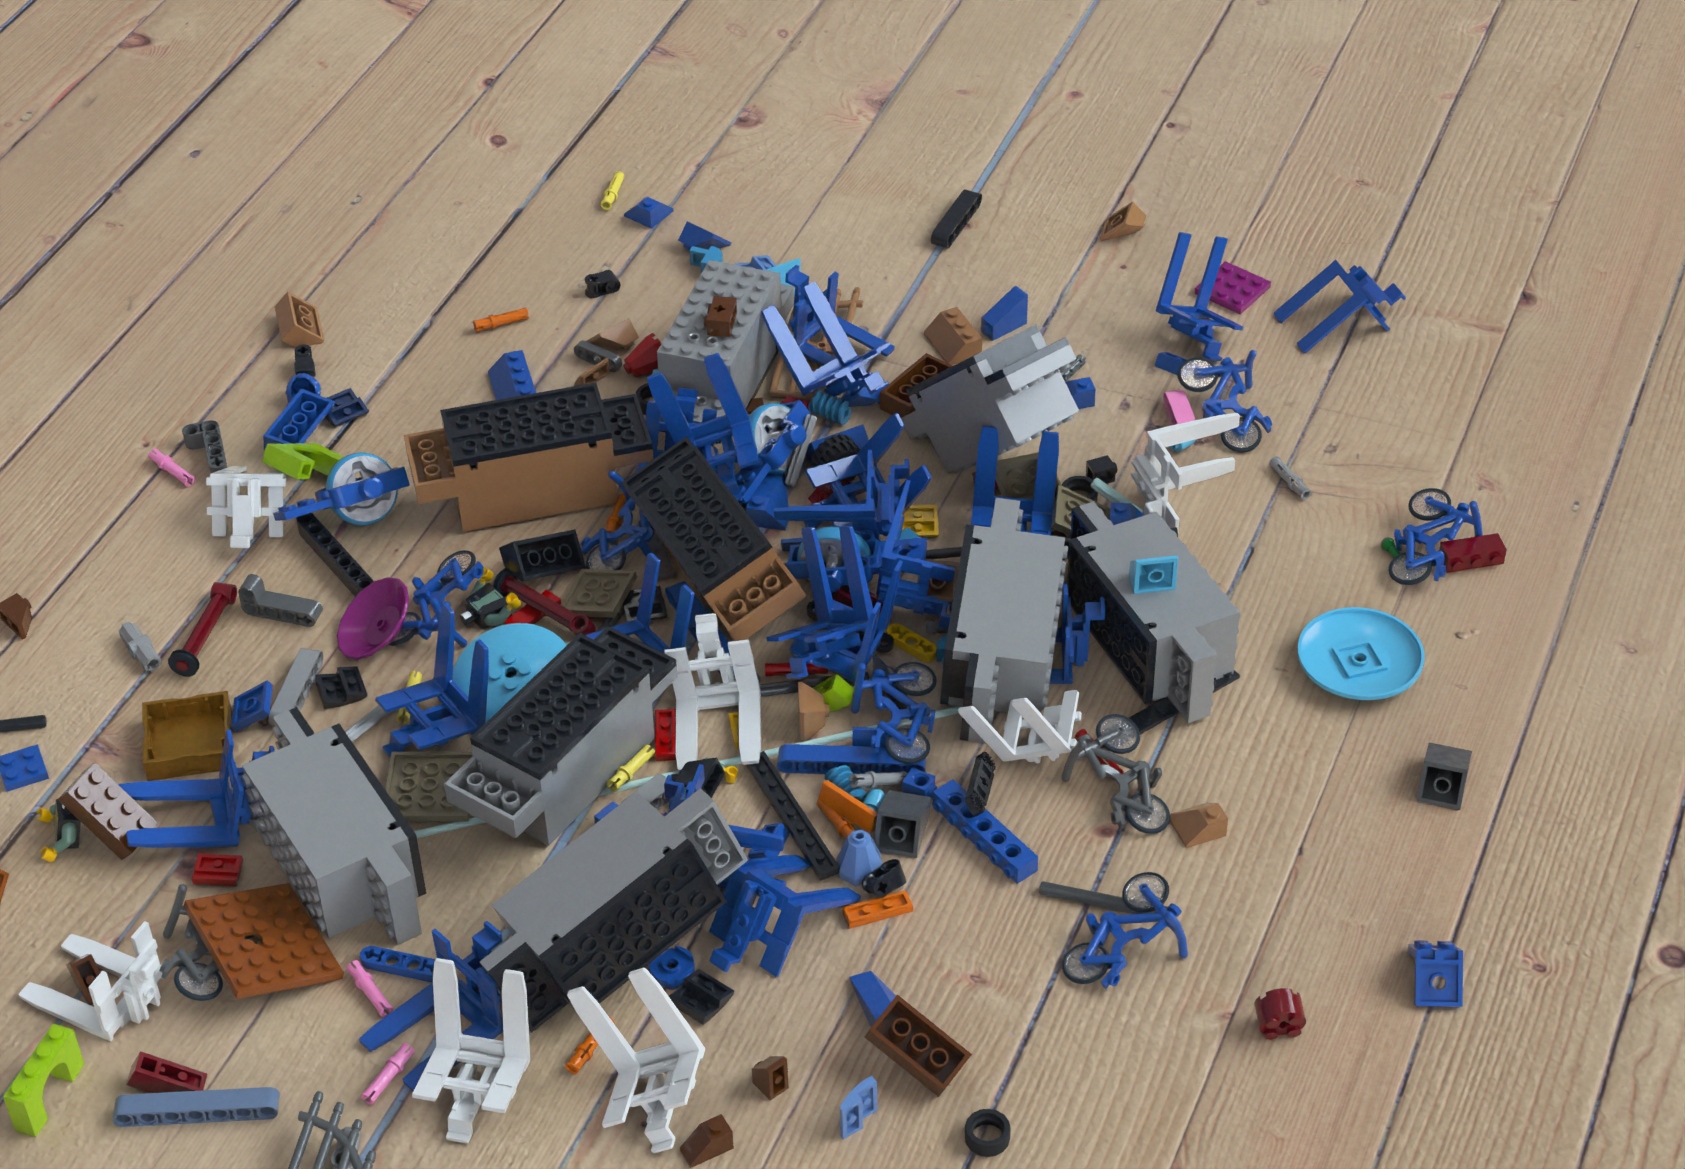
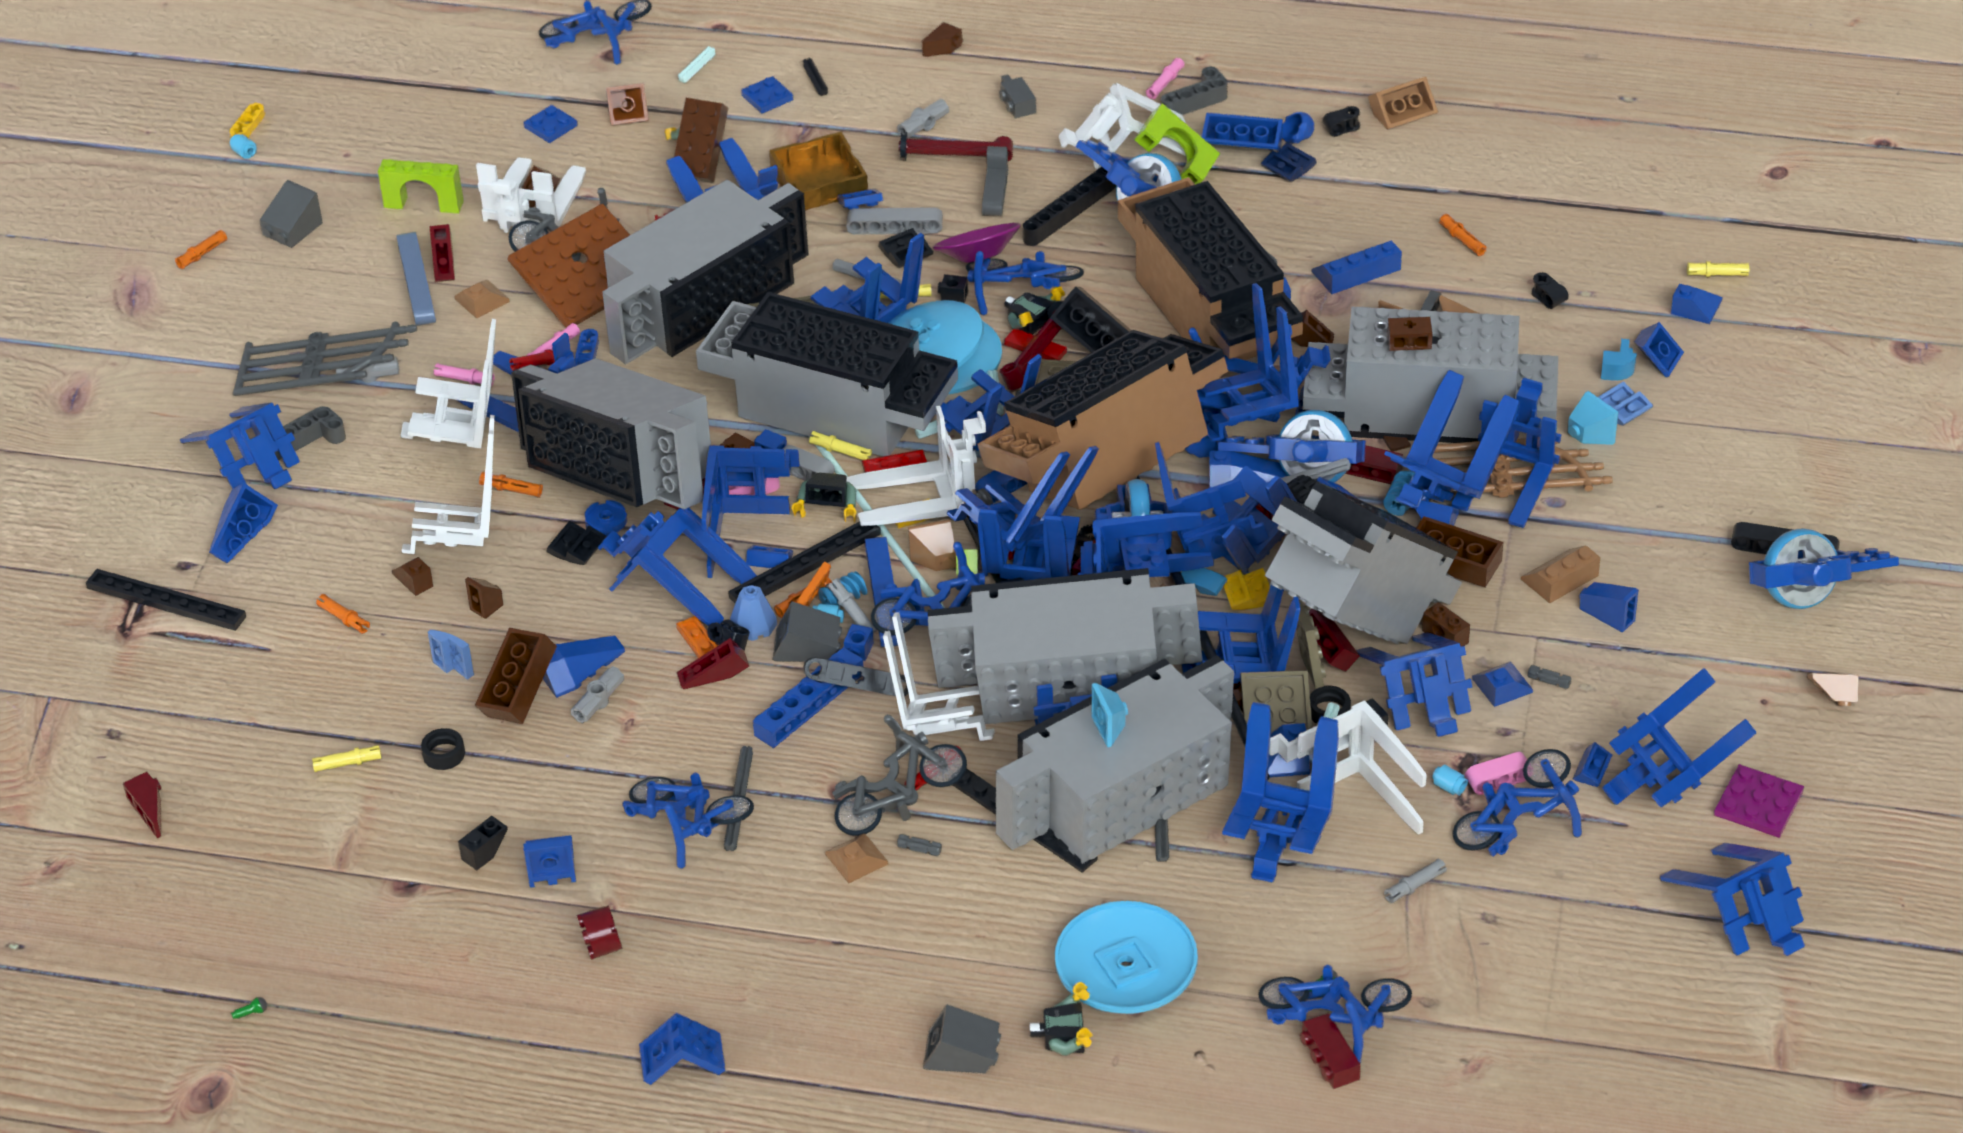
camera: 80 degrees right, 0 degrees up
(141, 572) = (1017, 96): none -> dark grey hinge
(255, 1051) = (481, 298): none -> medium nougat slope
(394, 993) = (546, 357): none -> red pin
(424, 656) = (953, 288): none -> black brick
(924, 898) = (716, 665): none -> dark red slope
(940, 994) = (597, 694): none -> light grey piece
(1004, 201) = (1809, 575): none -> piece
(1096, 418) = (1446, 681): none -> blue piece
(1137, 1103) = (482, 842): none -> black slope
(1180, 1046) = (562, 863): none -> blue bracket
(1191, 777) = (919, 845): none -> dark grey axle
(1199, 534) = (1307, 809): none -> blue piece
(1431, 706) = (1064, 1024): none -> torso

